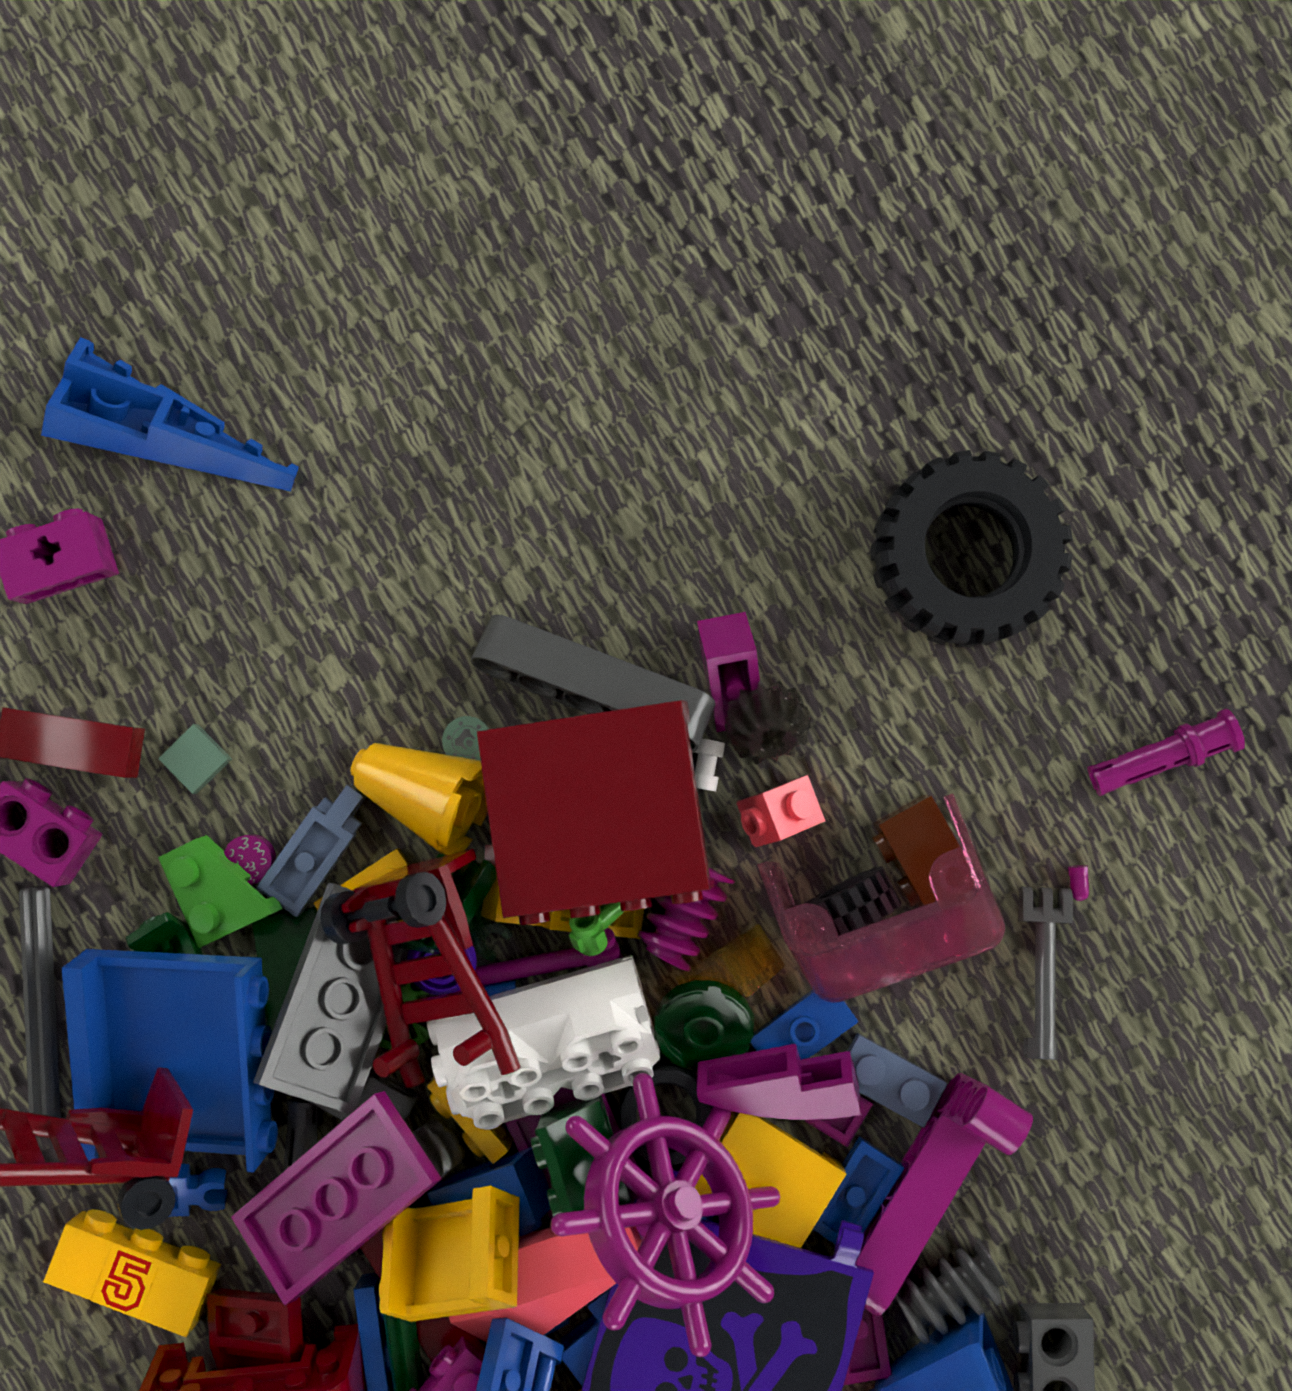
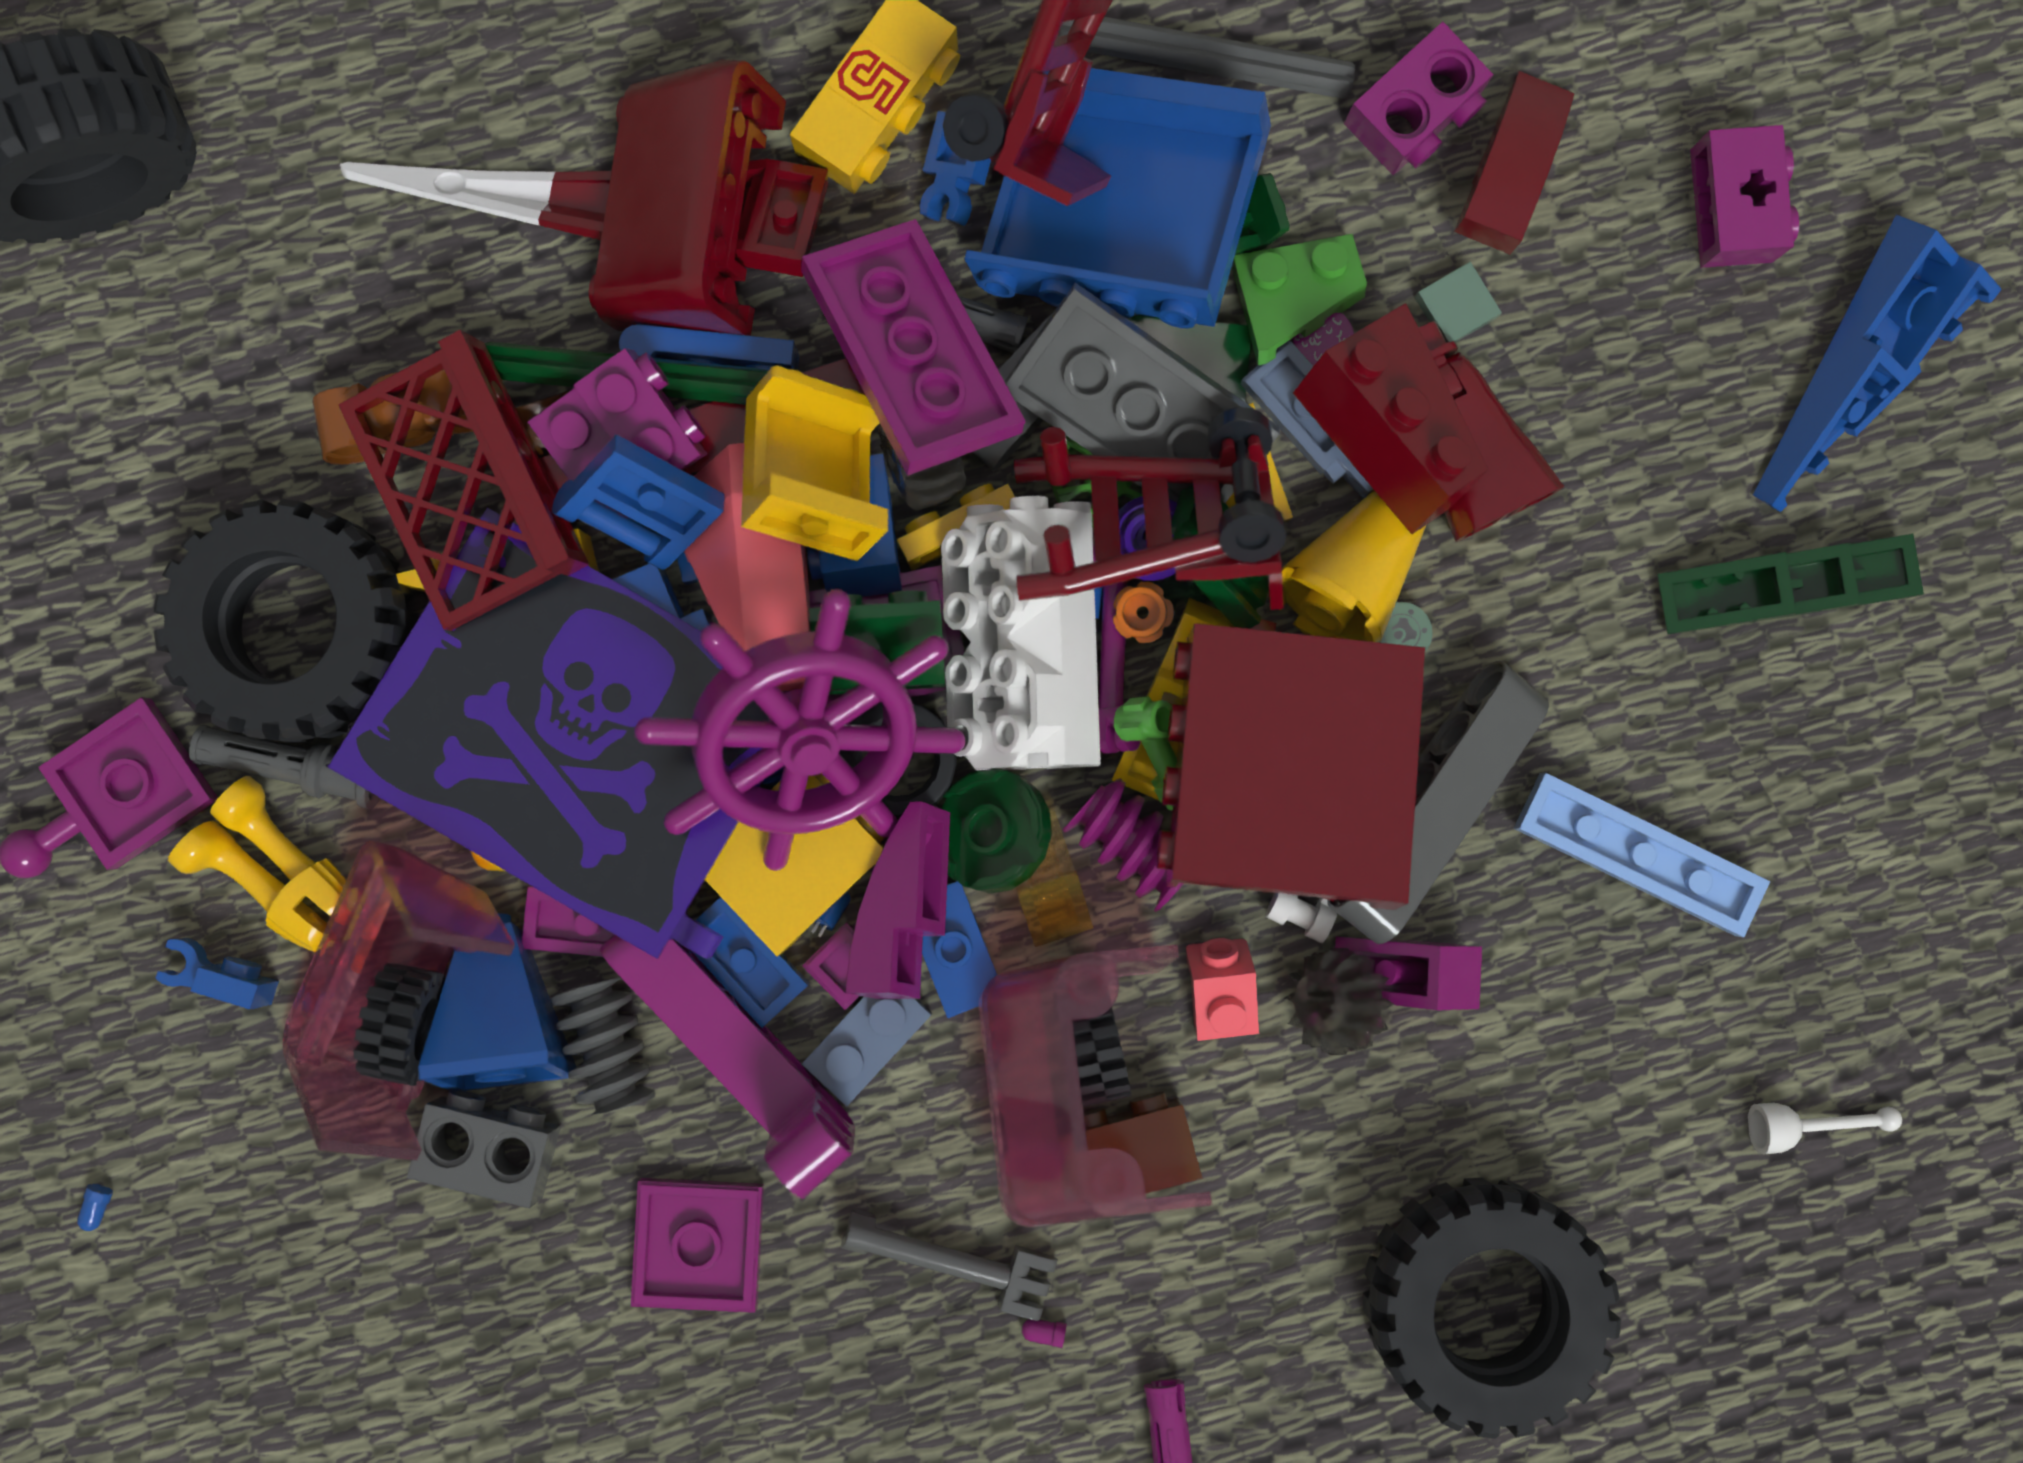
camera: 105 degrees right, 0 degrees up
(298, 795) = (1394, 418): none -> dark red wedge
(300, 725) = (1517, 469): none -> dark red piece
(354, 448) = (1790, 584): none -> dark green slope
(506, 963) = (1126, 617): none -> orange plate
(593, 513) = (1642, 855): none -> light blue plate
(776, 359) = (1779, 1128): none -> white hinge
(799, 1131) = (833, 914): none -> blue piece
(1084, 1171) = (697, 1245): none -> magenta tile

